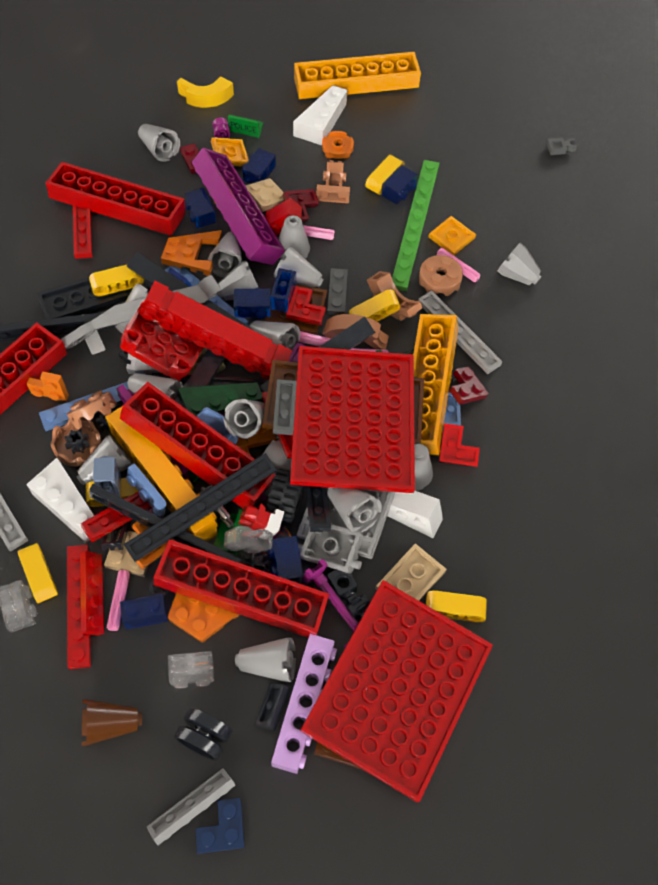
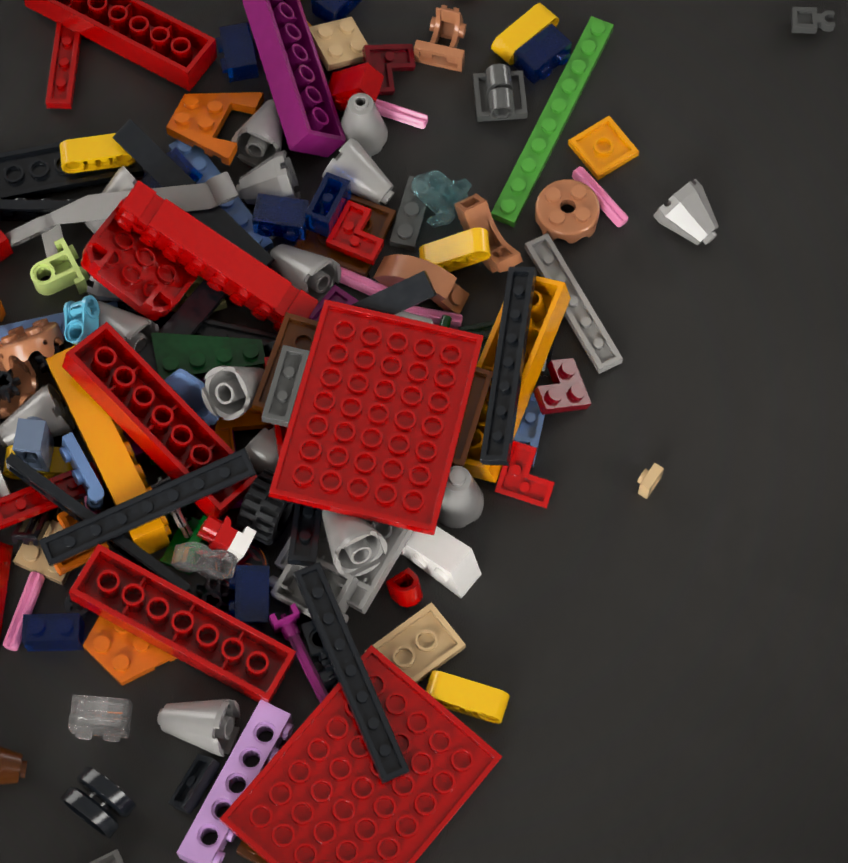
camera: 15 degrees right, 5 degrees up
(104, 359) = (62, 269): none -> yellowish green pin
(126, 384) = (80, 320): none -> medium azure piece
(355, 276) = (440, 196): none -> clear light blue pin
(374, 603) = (351, 673): none -> black tile
(378, 211) = (500, 94): none -> dark grey plate
(394, 537) = (405, 588): none -> red plate
(433, 375) = (508, 366): none -> black plate
(541, 437) = (649, 480): none -> tan plate

